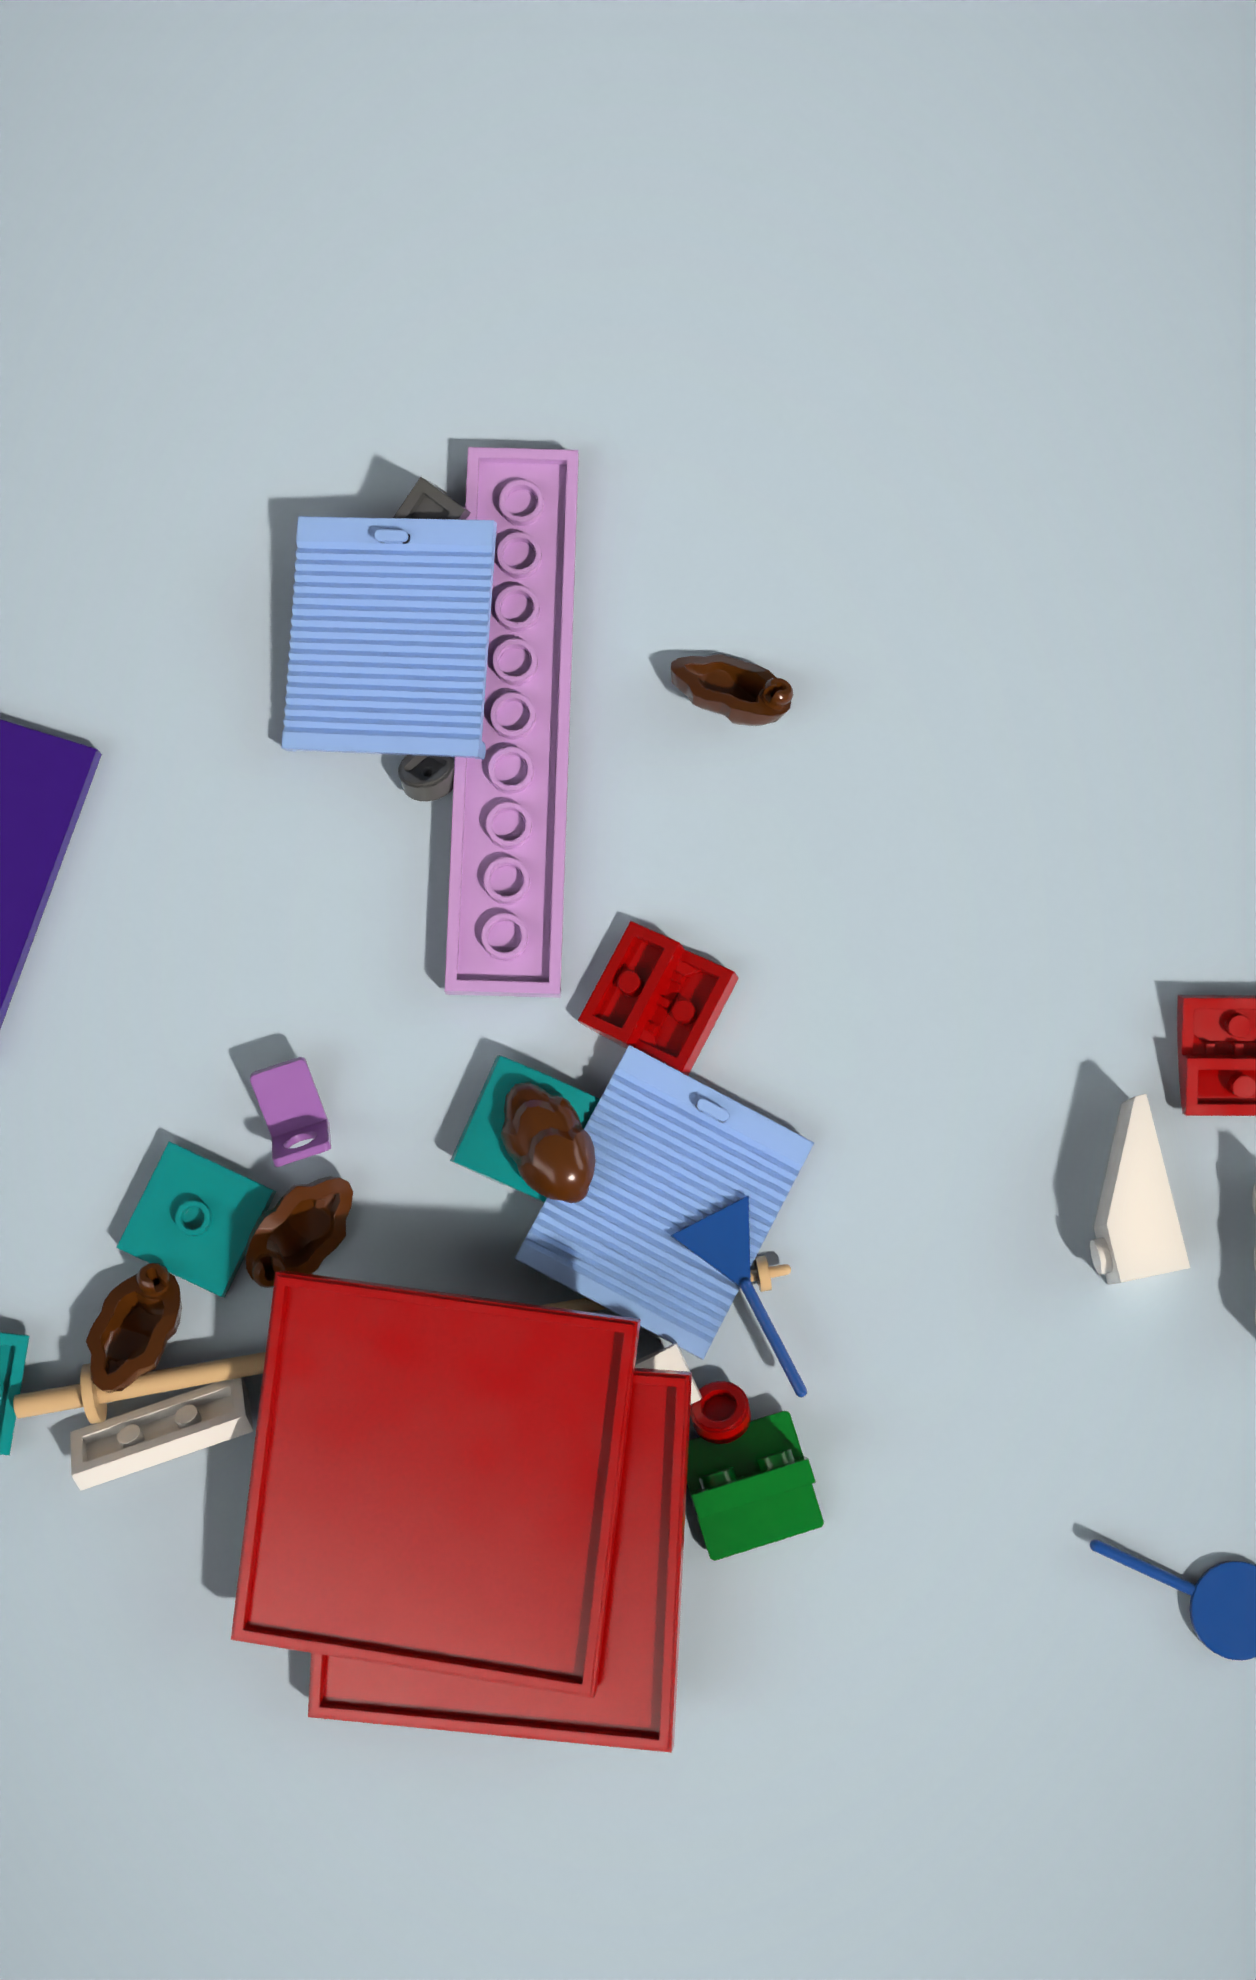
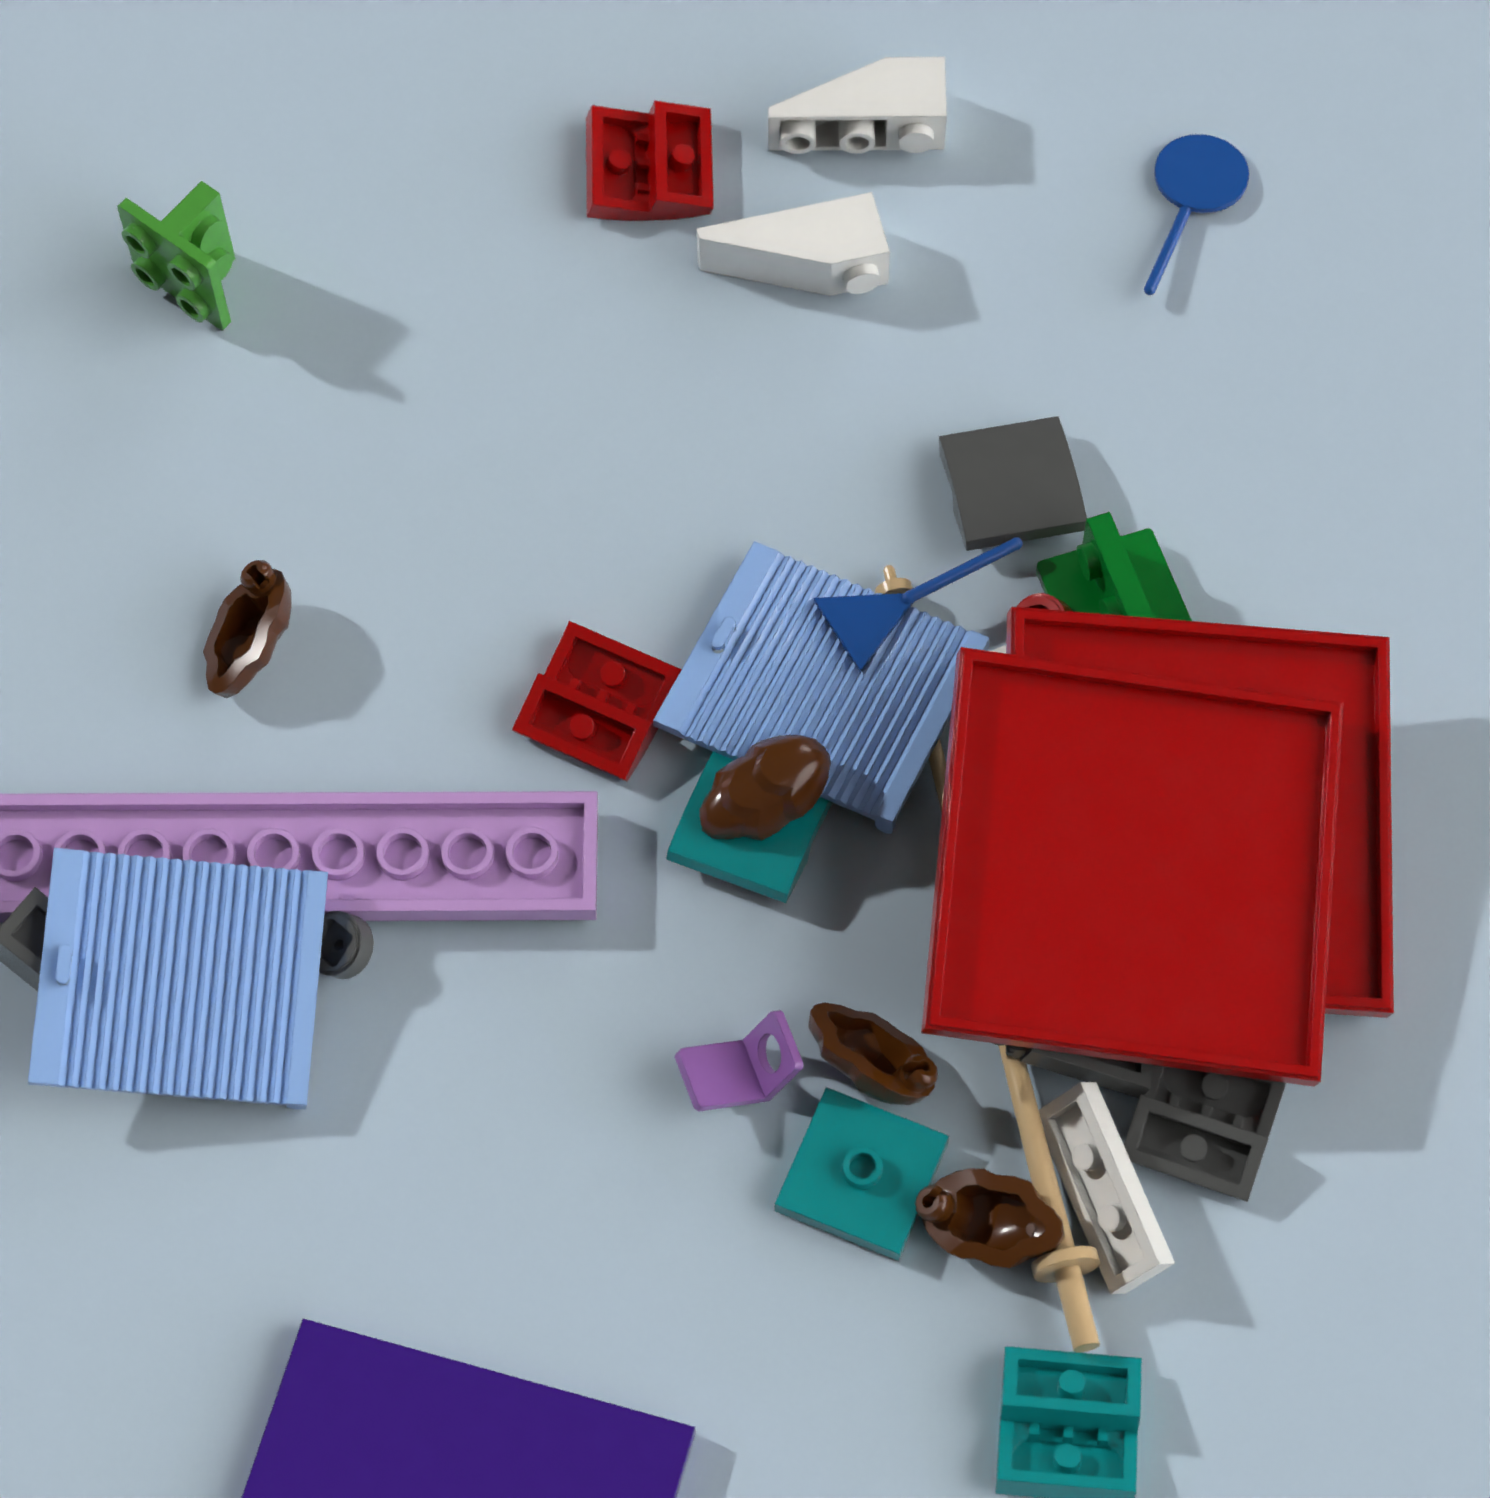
camera: 90 degrees left, 15 degrees down
(204, 1525) = (1204, 1127): none -> dark grey slope
(876, 1393) = (1013, 483): none -> dark grey slope
(1116, 619) = (183, 252): none -> bright green bracket

